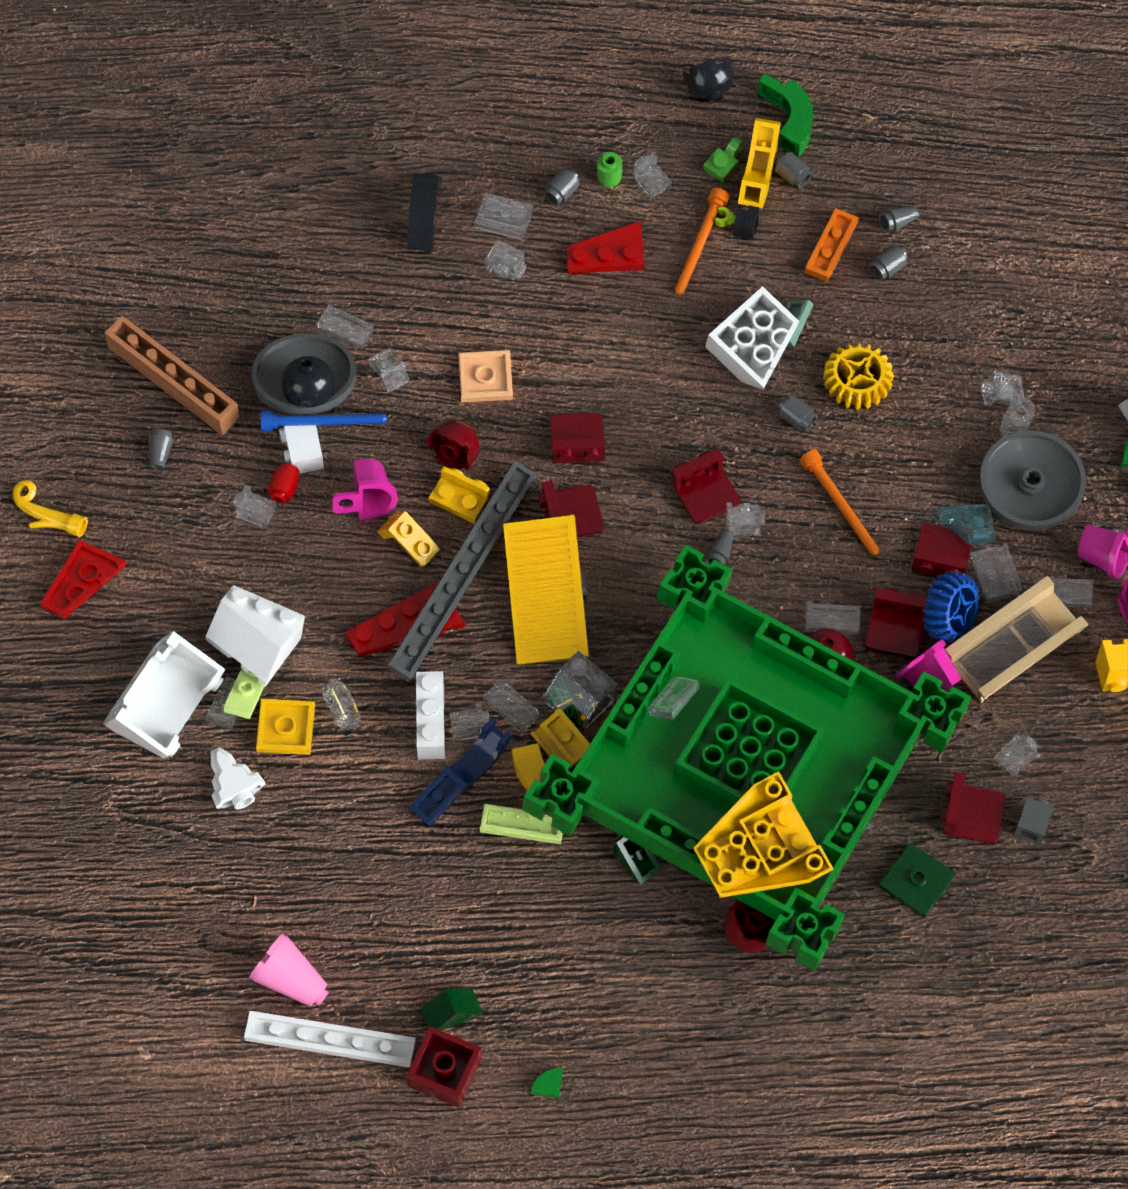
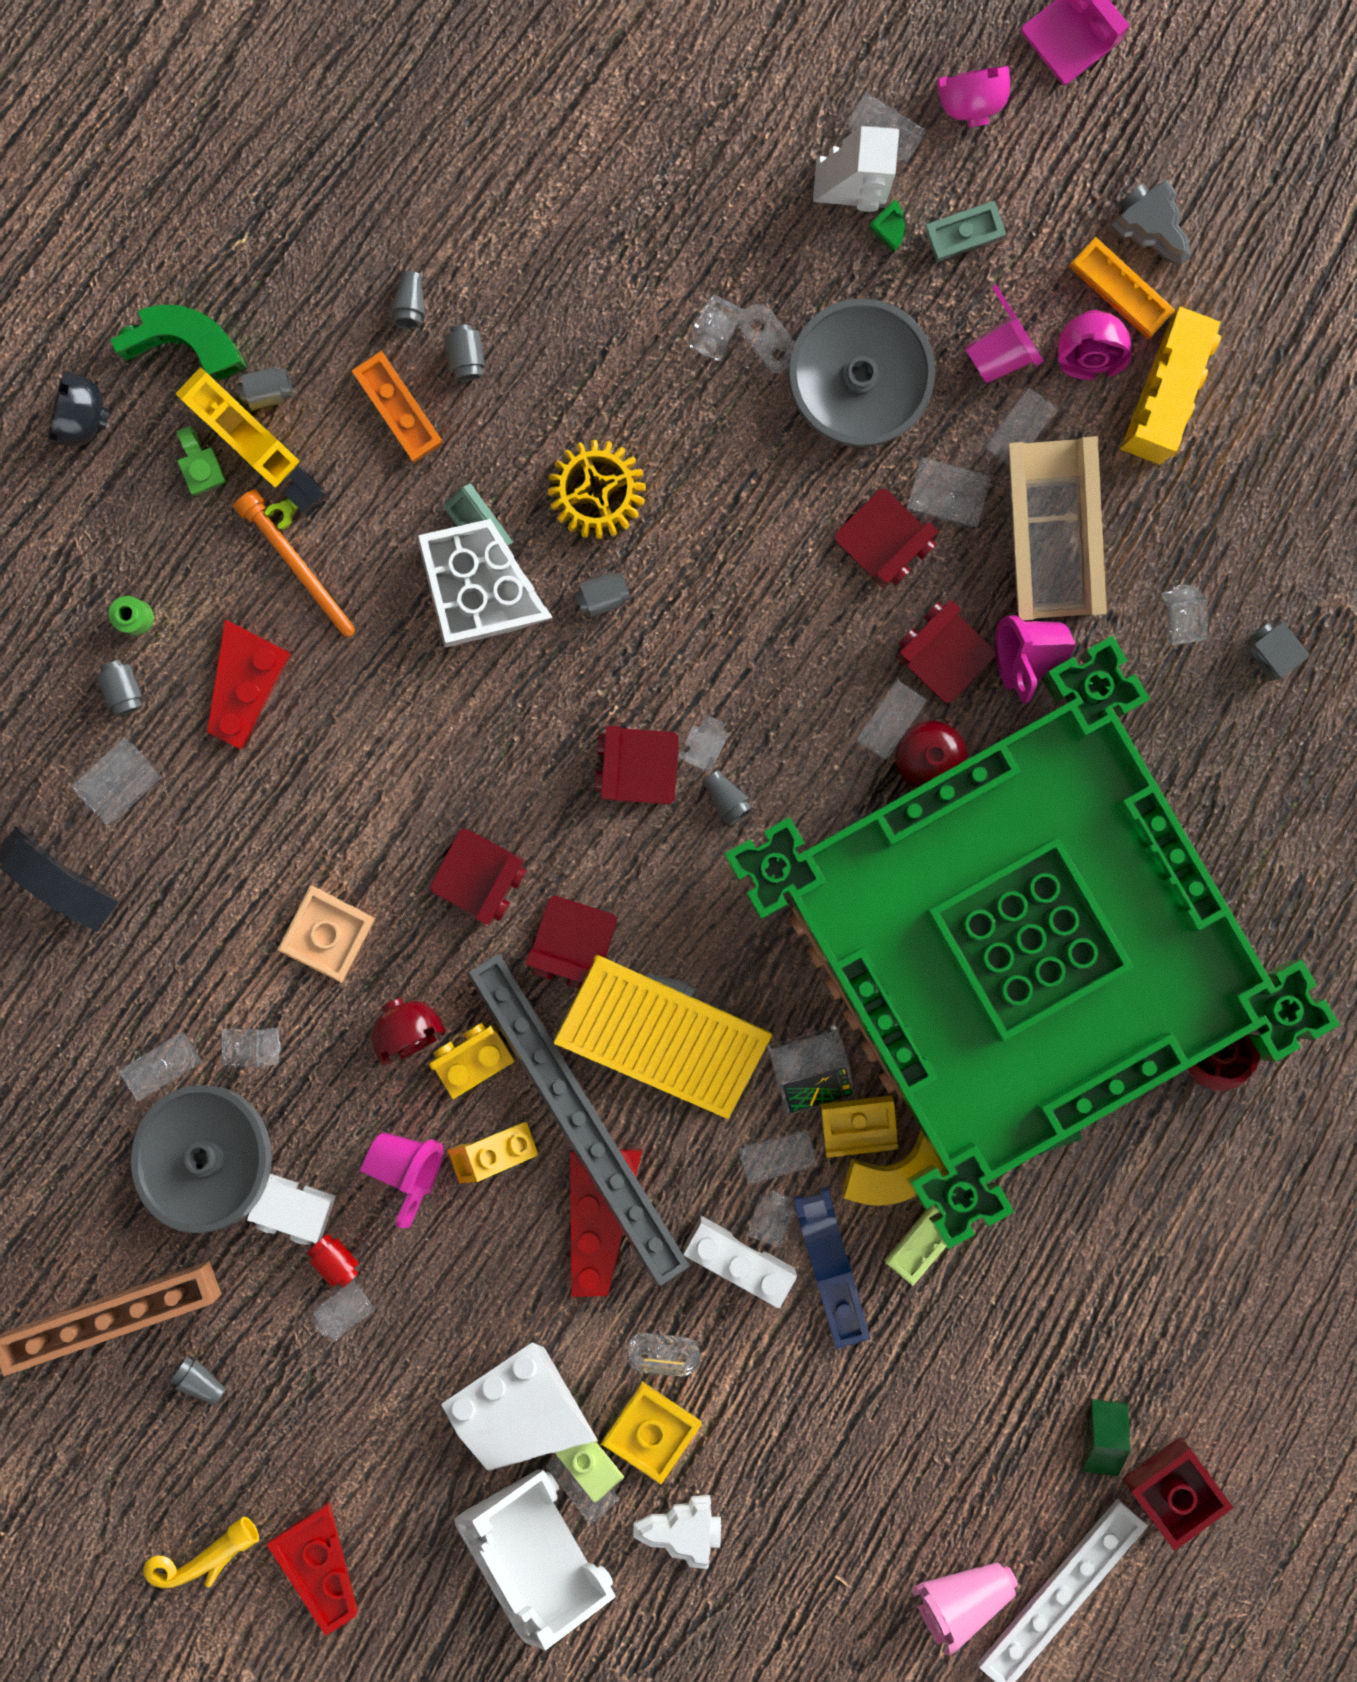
camera: 60 degrees left, 25 degrees up
(271, 420) = (246, 1239): blue piece -> none
(307, 381) = (224, 1170): black cylinder -> none
(505, 261) = (185, 820): clear brick -> none
(548, 1083) = (1254, 1381): green tile -> none
(650, 175) = (168, 567): clear bracket -> none
(673, 697) = (915, 989): clear plate -> none
(761, 844) = (1179, 1010): yellow wedge -> none
(813, 462) = (678, 615): orange piece -> none
(917, 880) = (1262, 826): dark green plate -> none
(951, 607) = (972, 579): blue gear -> none
(969, 522) = (870, 482): clear light blue wing -> none
(972, 811) = (1223, 712): dark red bracket -> none

